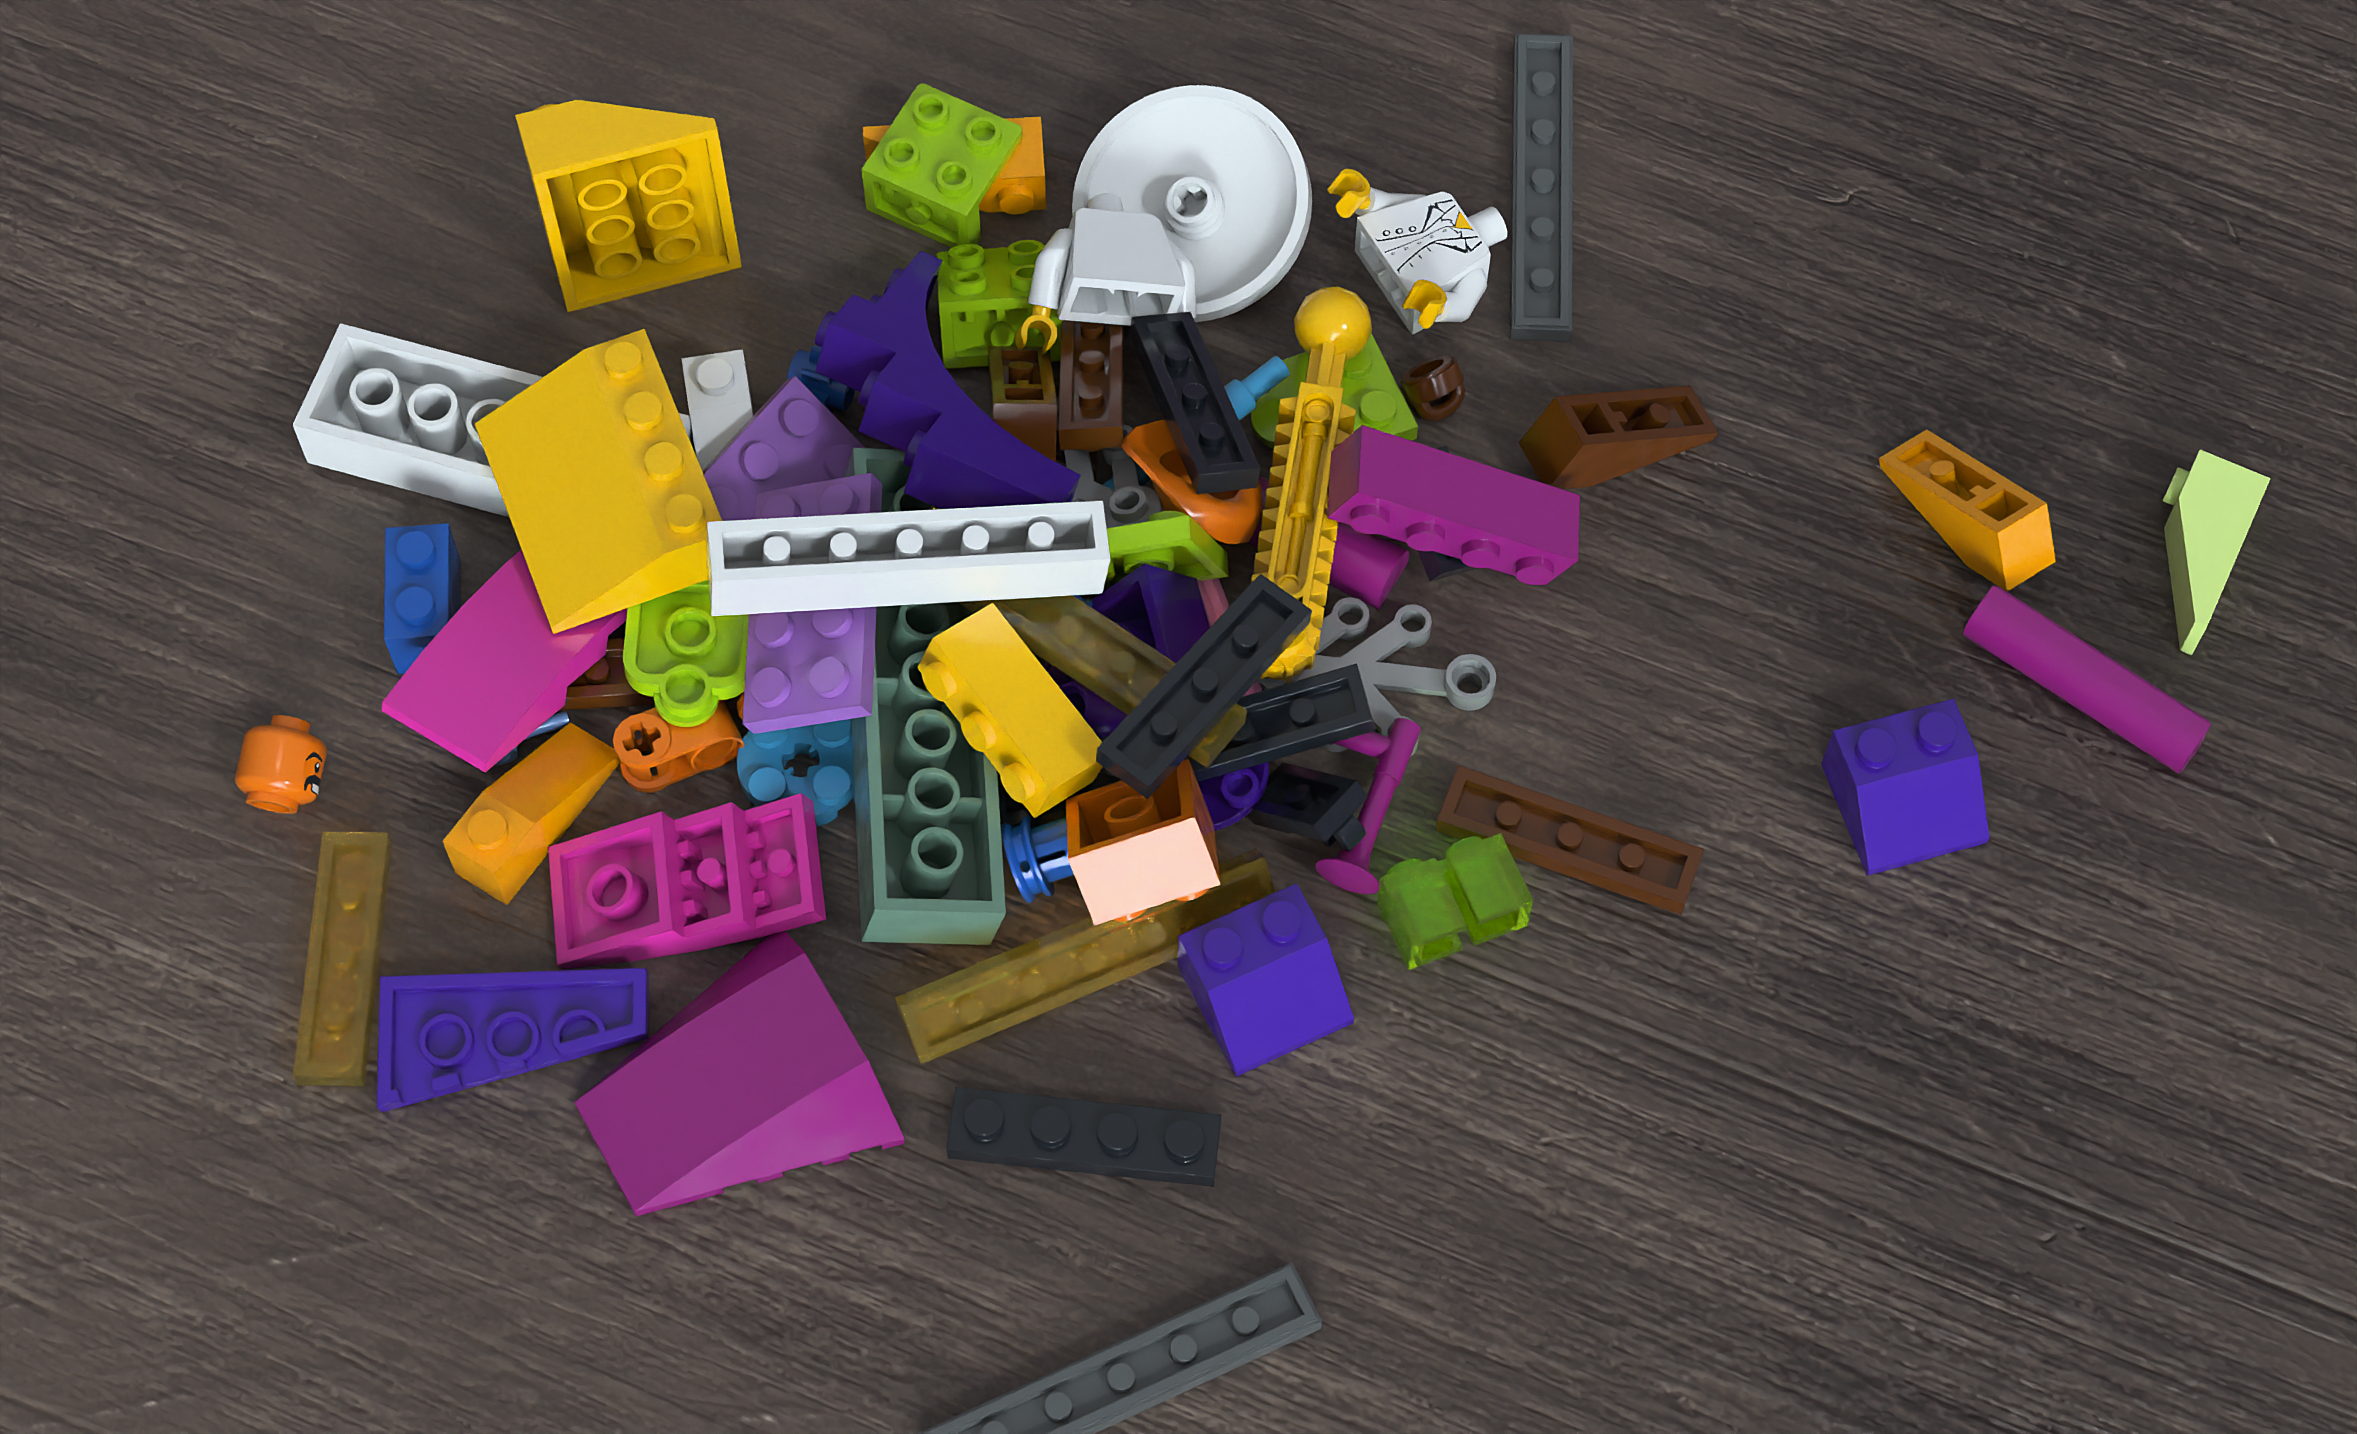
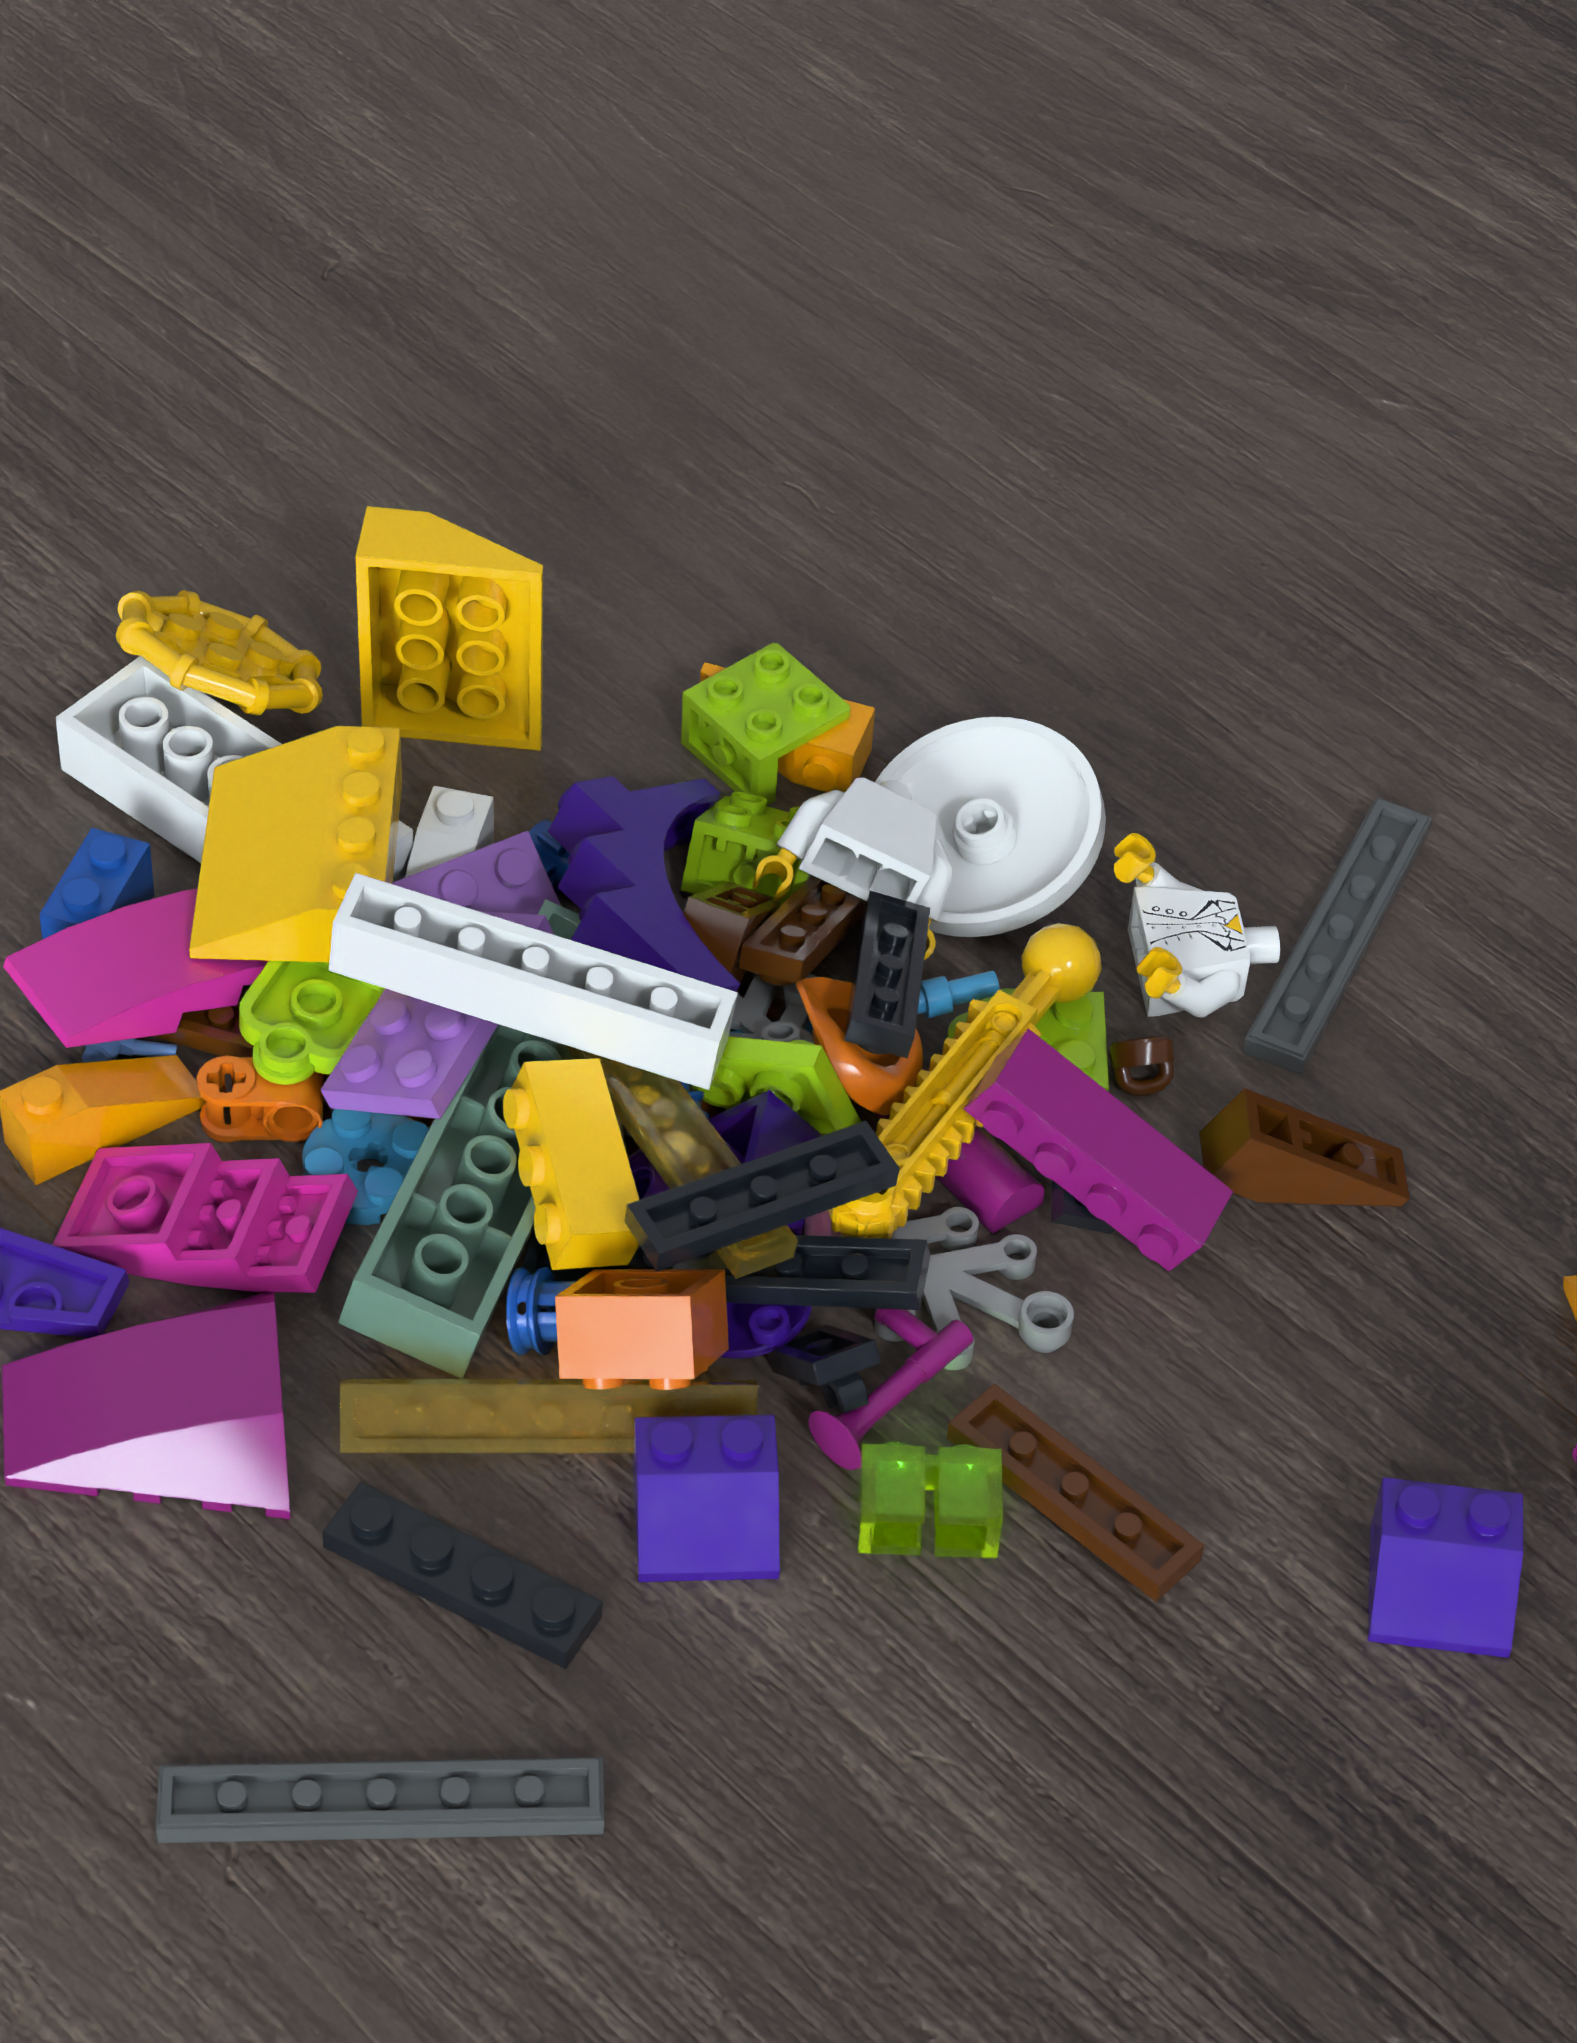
camera: 20 degrees right, 15 degrees down
(406, 290) = (219, 652): none -> yellow plate

